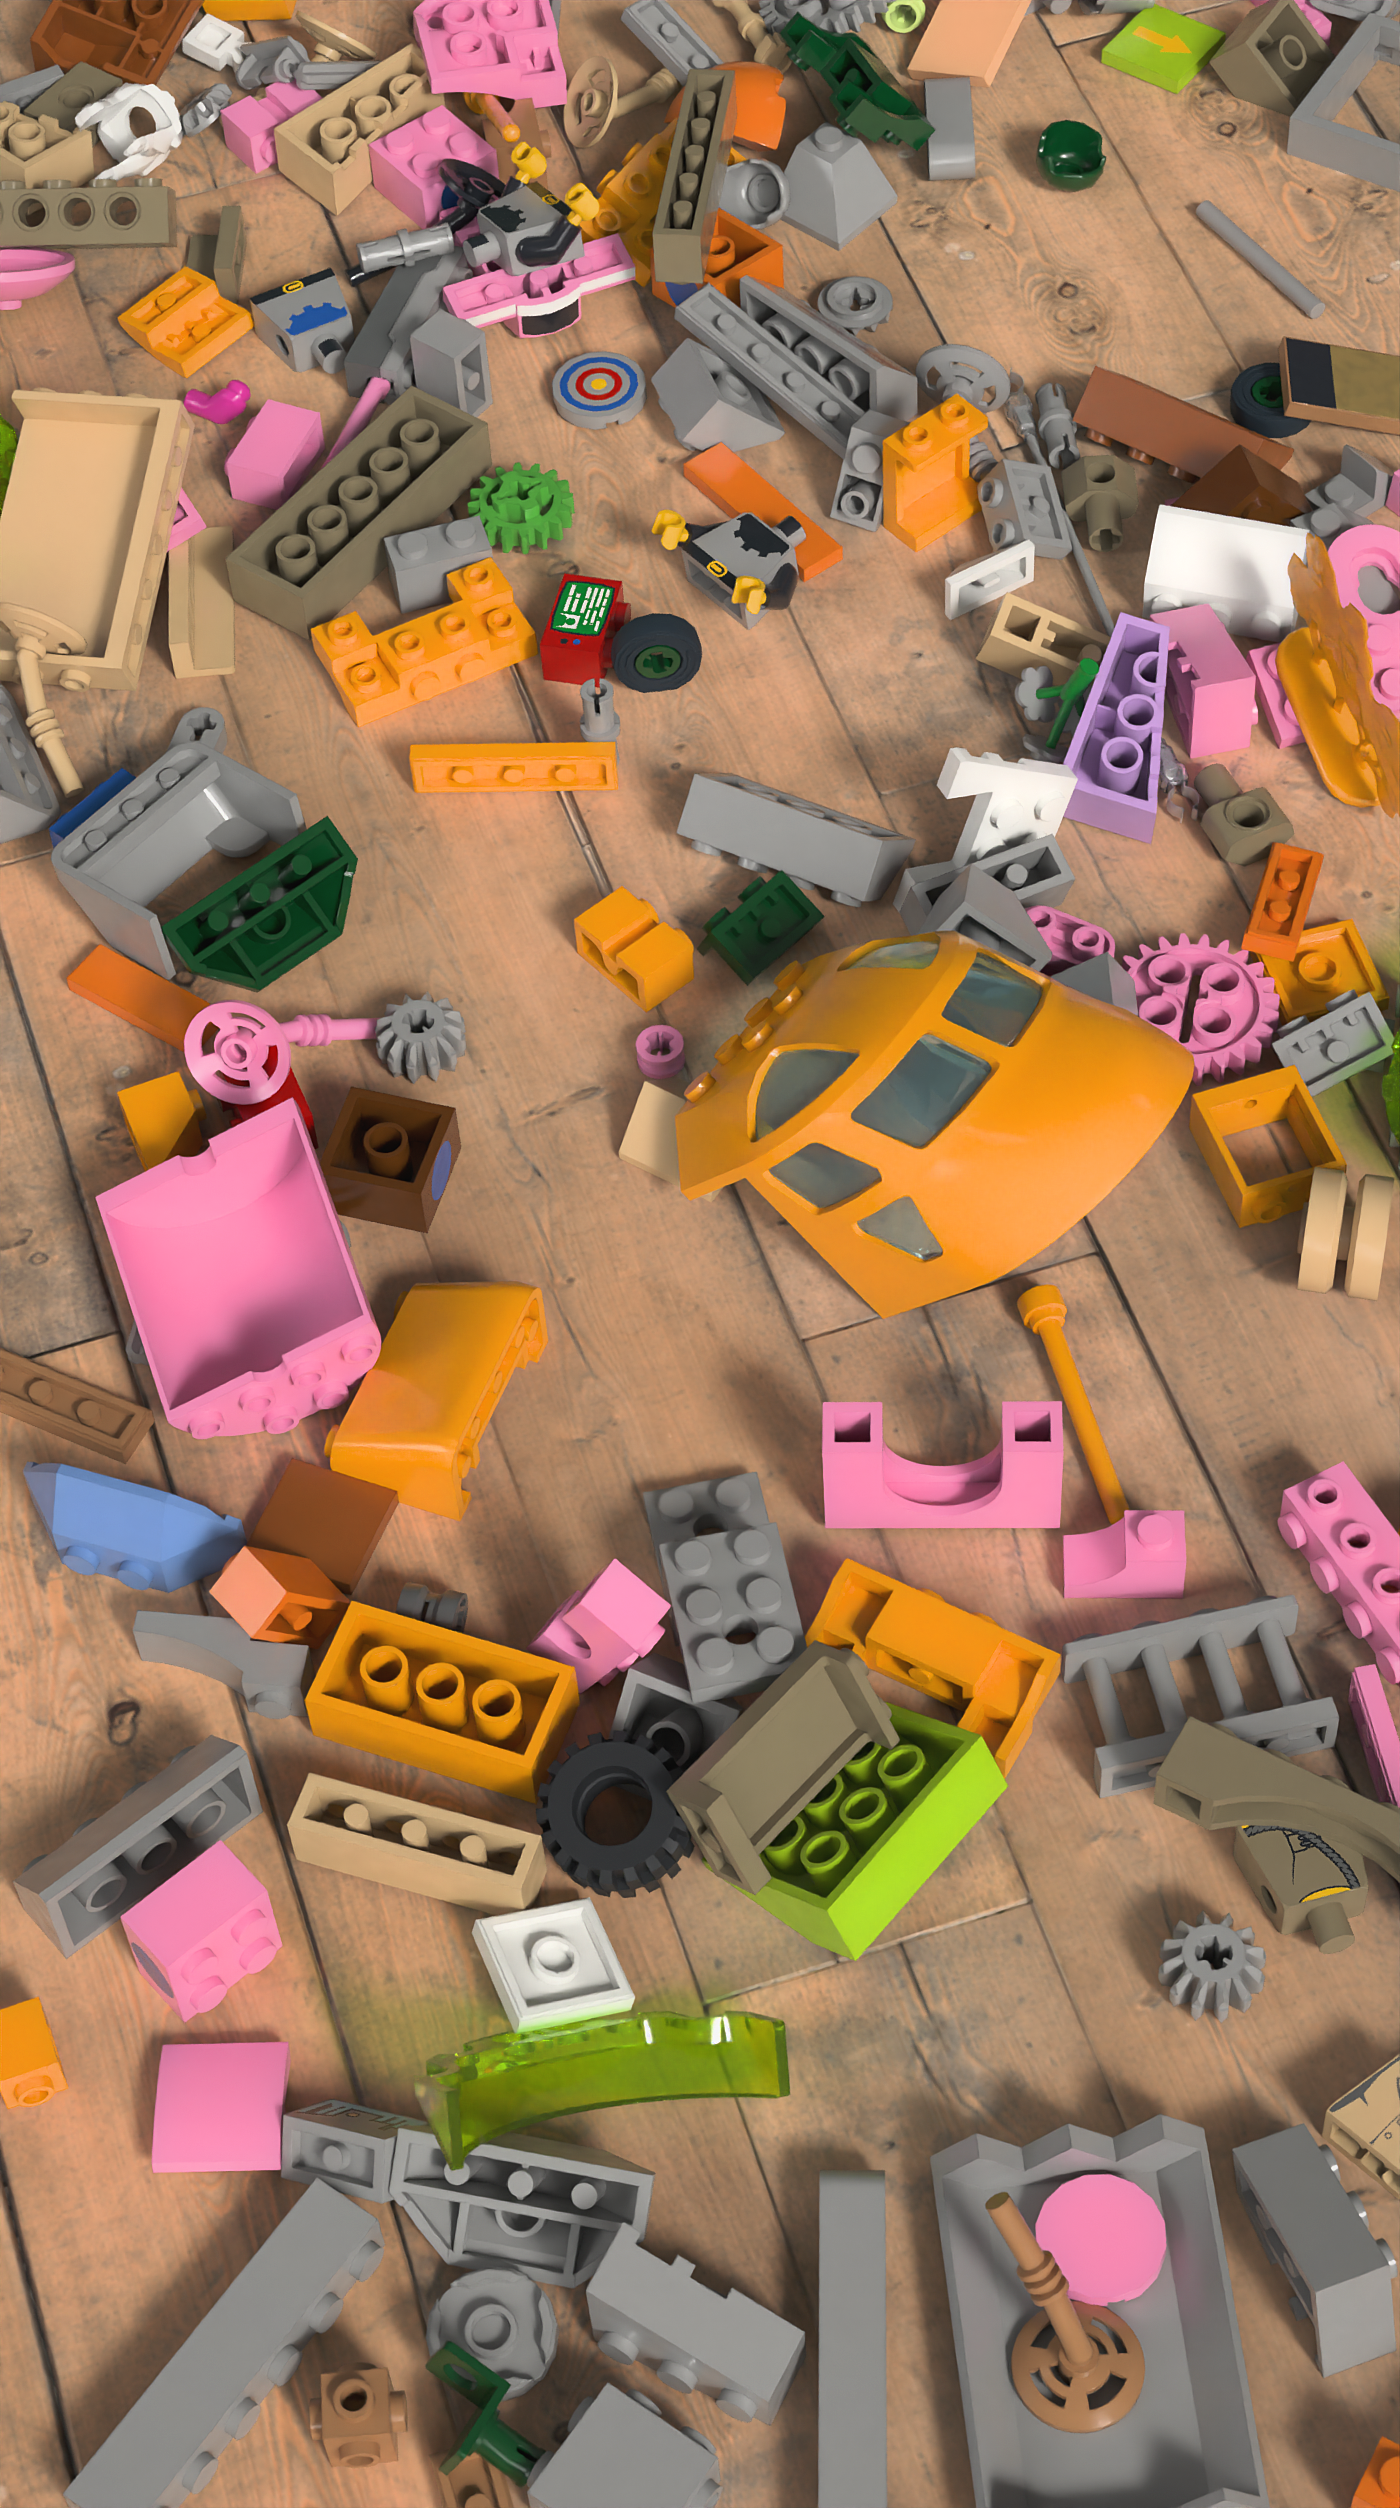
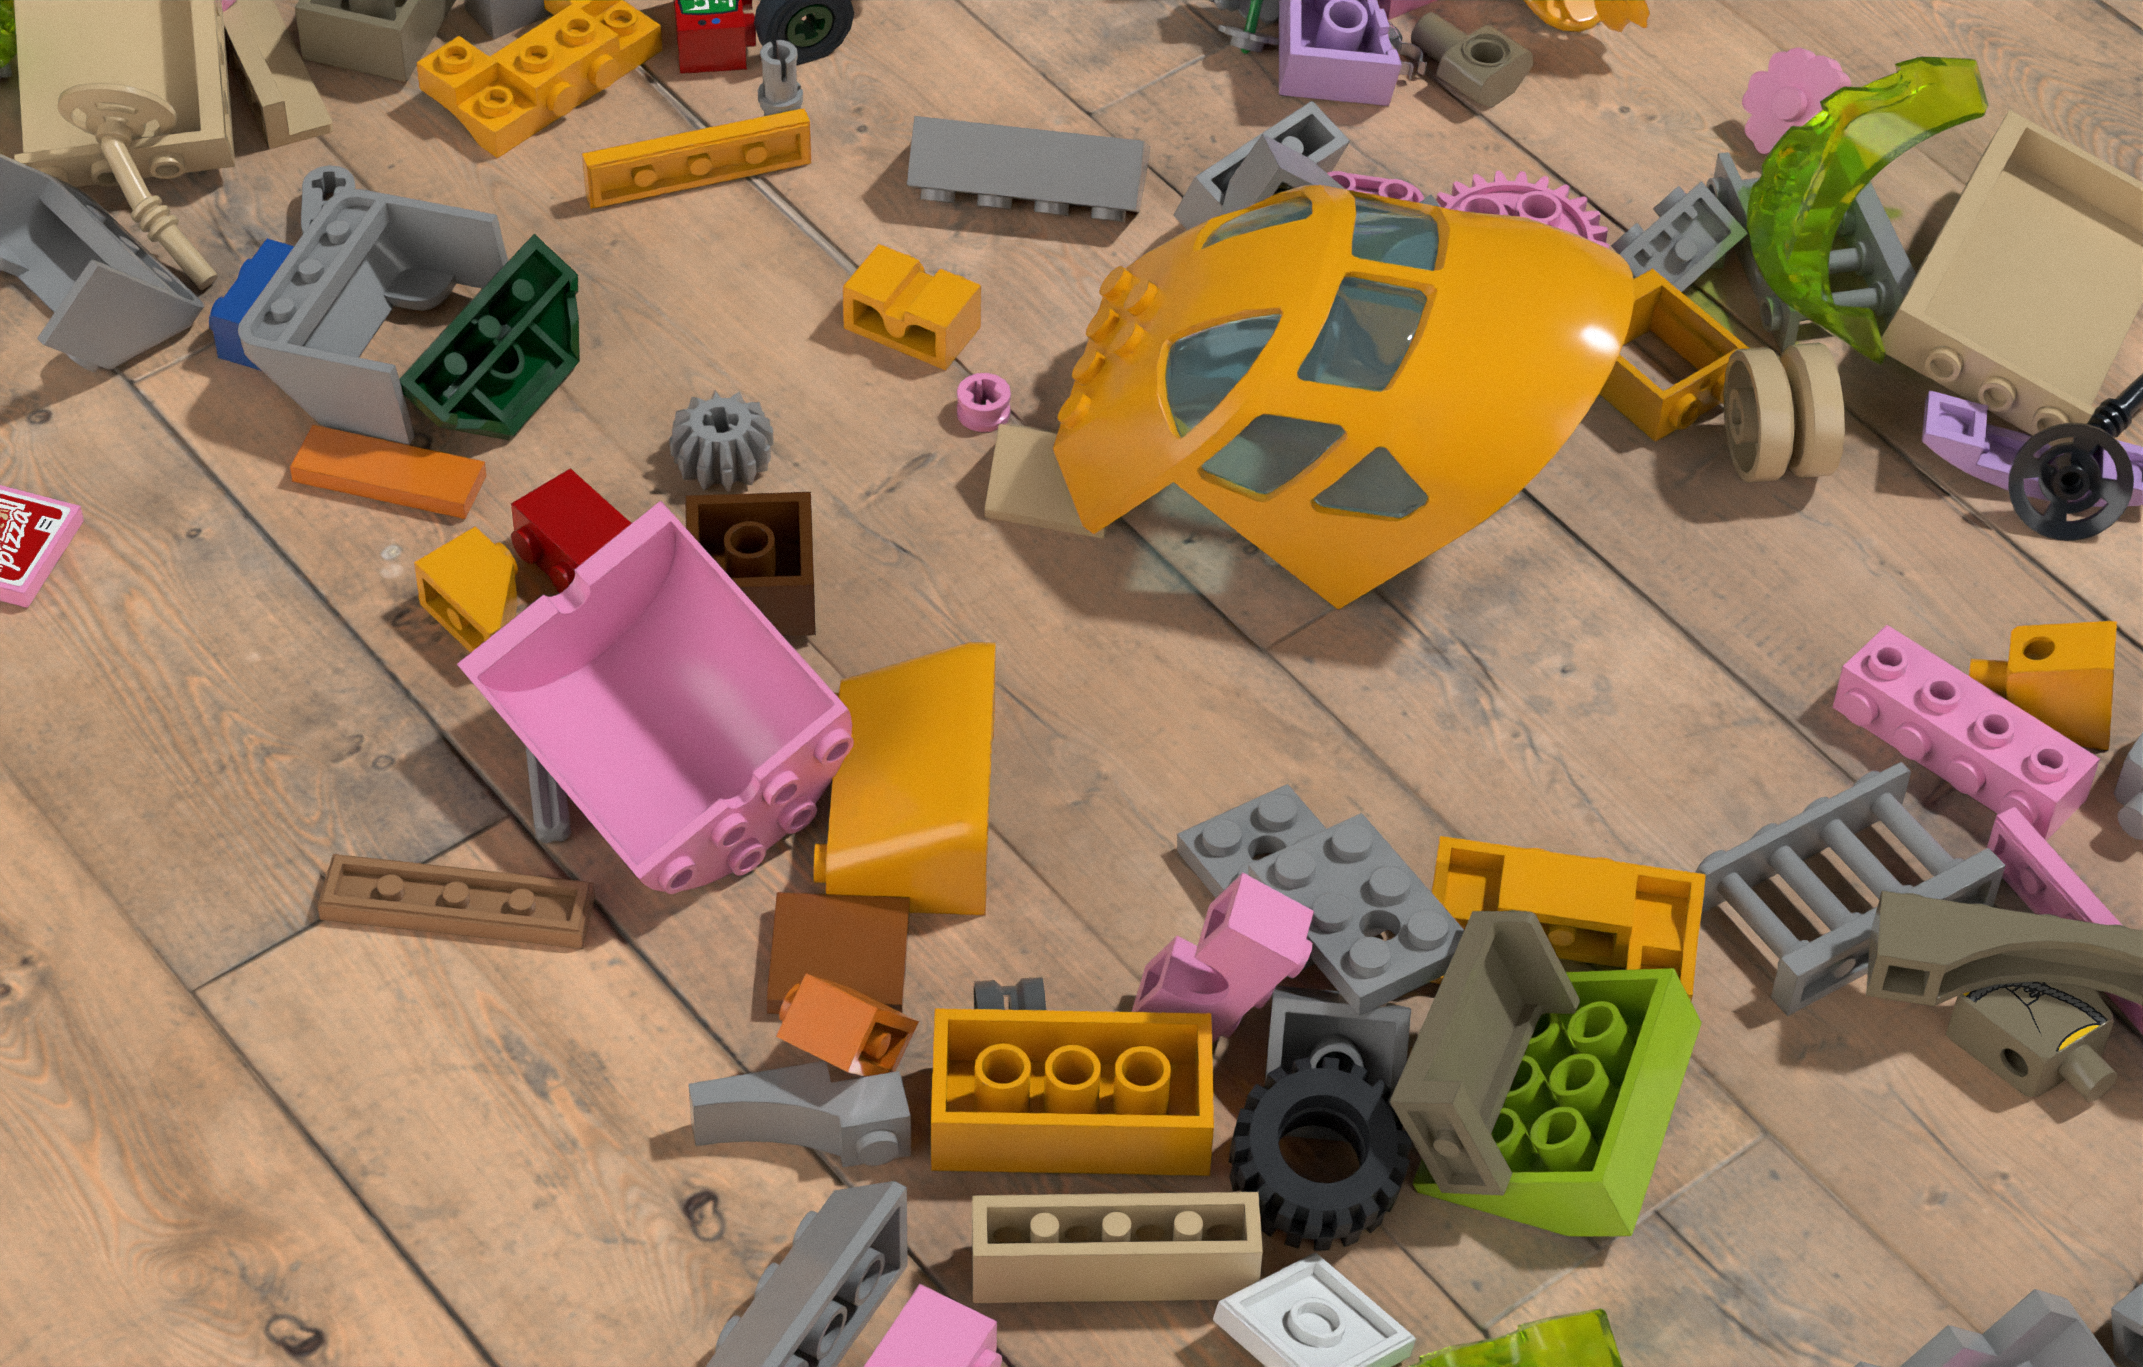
camera: 25 degrees left, 5 degrees down
(129, 1528) = (626, 1002): medium blue wedge -> none
(249, 1046) = (561, 478): bright pink dish -> none
(762, 927) = (1037, 257): dark green bracket -> none
(1004, 1489) = (1570, 728): bright pink arch -> none
(1010, 808) = (1263, 87): white wing -> none
(1044, 1313) = (1507, 562): light orange piece -> none
(1129, 1559) = (1719, 771): bright pink arch -> none
(1189, 1969) = (1991, 1142): light grey gear -> none
(1282, 901) = (1556, 127): orange tile -> none
(1326, 965) = (1619, 181): light orange tile -> none

